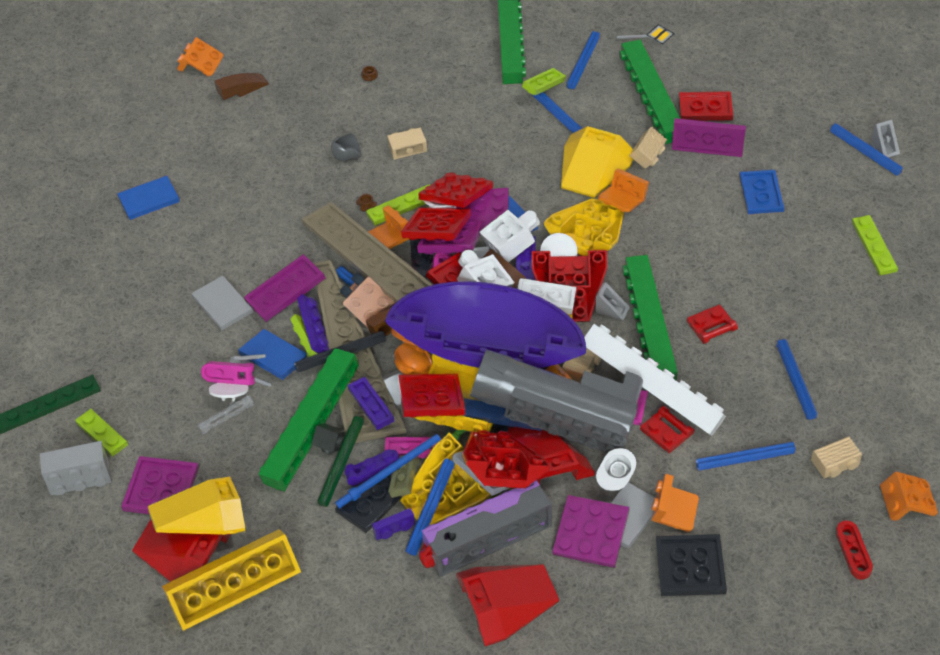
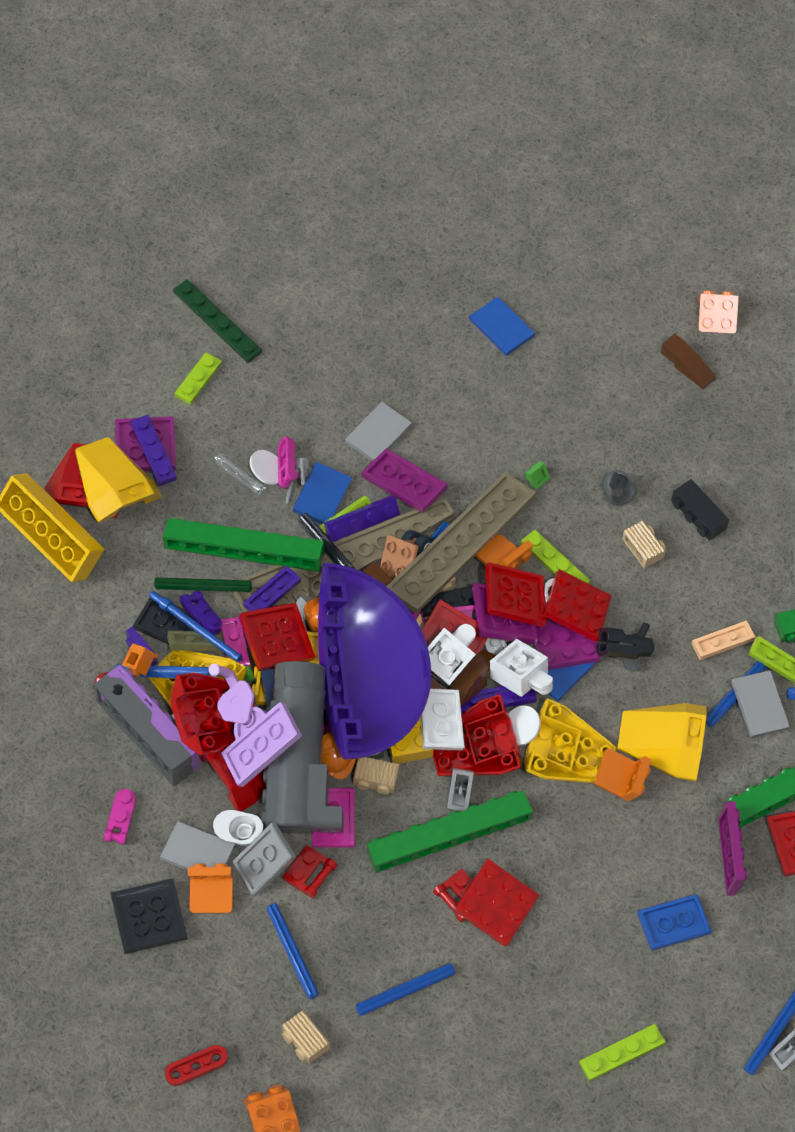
camera: 70 degrees right, 10 degrees up
(75, 468) = (143, 369): light grey brick -> none
(172, 477) = (153, 450): none -> dark purple plate
(312, 199) = (537, 475): none -> bright green tile
(328, 438) = (227, 566): pearl dark grey brick -> none
(366, 202) = (547, 522): reddish brown plate -> none
(369, 73) = (745, 477): reddish brown plate -> none
(386, 103) = (699, 510): none -> black brick
(410, 515) = (139, 660): none -> orange brick
(506, 165) = (627, 647): none -> black piece
(506, 597) = (80, 758): red wedge -> none
(512, 113) = (723, 640): none -> light nougat plate
(550, 417) = (258, 733): none -> lavender plate
(576, 574) = (120, 816): none -> dark pink plate
(578, 101) = (760, 704): none -> light grey tile
(591, 531) = (168, 820): magenta plate -> none
(648, 148) = (701, 789): tan brick -> none
(654, 380) = (355, 842): white brick -> none
(655, 452) = (264, 859): none -> light grey tile
(726, 298) = (496, 902): none -> red plate

